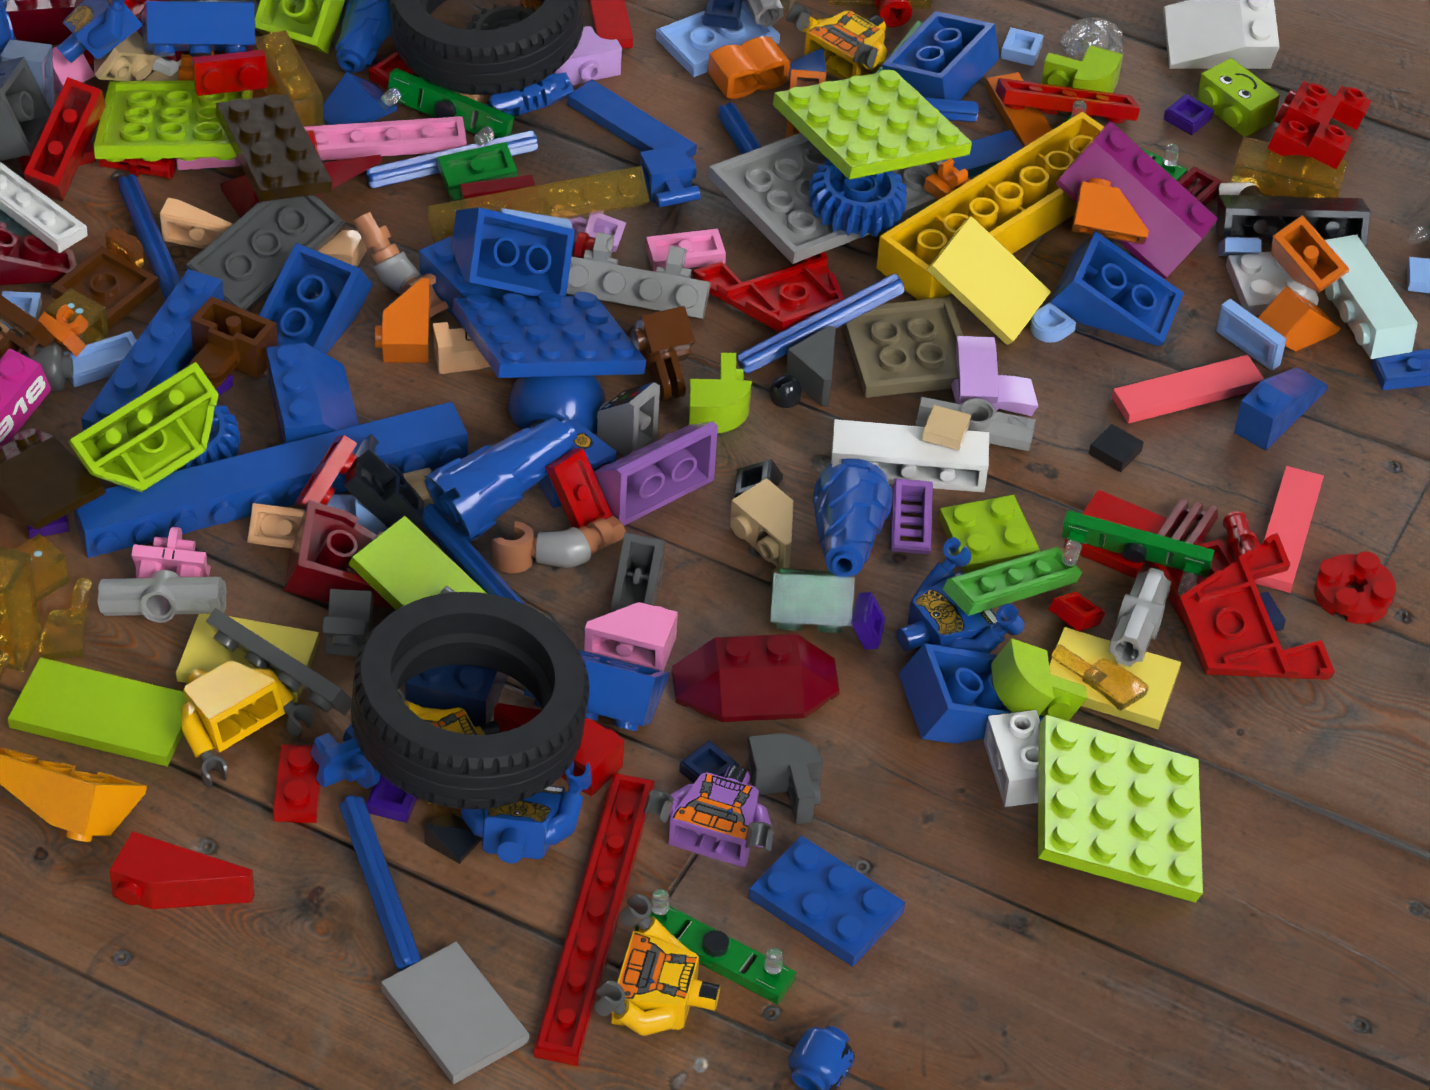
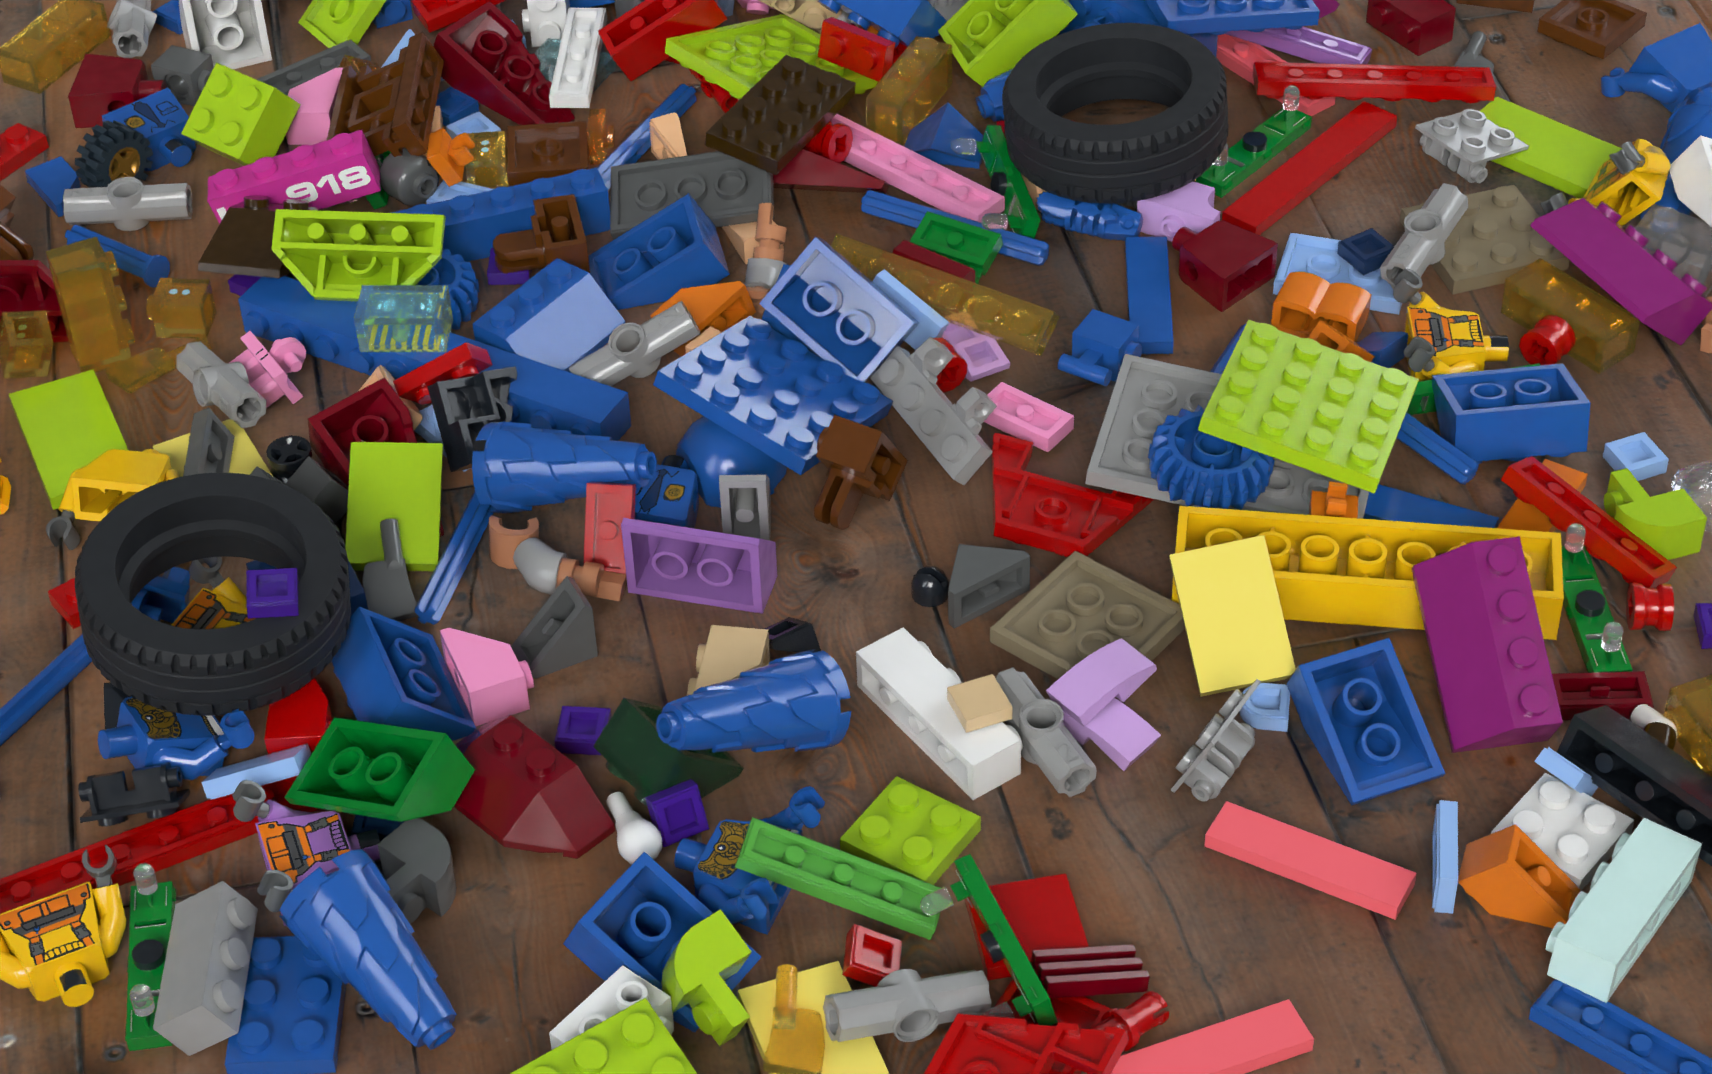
camera: 55 degrees right, 5 degrees down
(245, 456) = (403, 318): none -> clear light blue brick
(291, 607) = (287, 455): none -> black wheel
(420, 353) = (638, 348): none -> light grey piece
(545, 660) = (272, 593): none -> dark purple tile
(546, 884) = (113, 800): none -> black hinge
(609, 793) = (261, 770): none -> light blue tile
(650, 73) = (1224, 262): none -> dark red torso
(700, 729) = (382, 772): none -> green slope
(722, 399) = (855, 554): lime brick -> none
(731, 620) = (580, 729): none -> dark purple tile
(771, 914) = (206, 969): none -> light grey brick
(834, 315) = (1040, 547): axle -> none
(844, 818) = (370, 945): none -> blue cone
(866, 652) = (633, 832): none -> white piece
(915, 492) = (868, 743): medium lavender slope -> none
(1075, 356) = (1222, 749): none -> light grey hinge
(1107, 212) = (1419, 626): orange slope -> none
(1116, 447) = (1150, 855): black tile -> none
(1152, 127) = (1650, 607): none -> red wheel
(1276, 406) = (1374, 937): blue slope -> none
(1307, 256) = (1589, 812): orange slope -> none

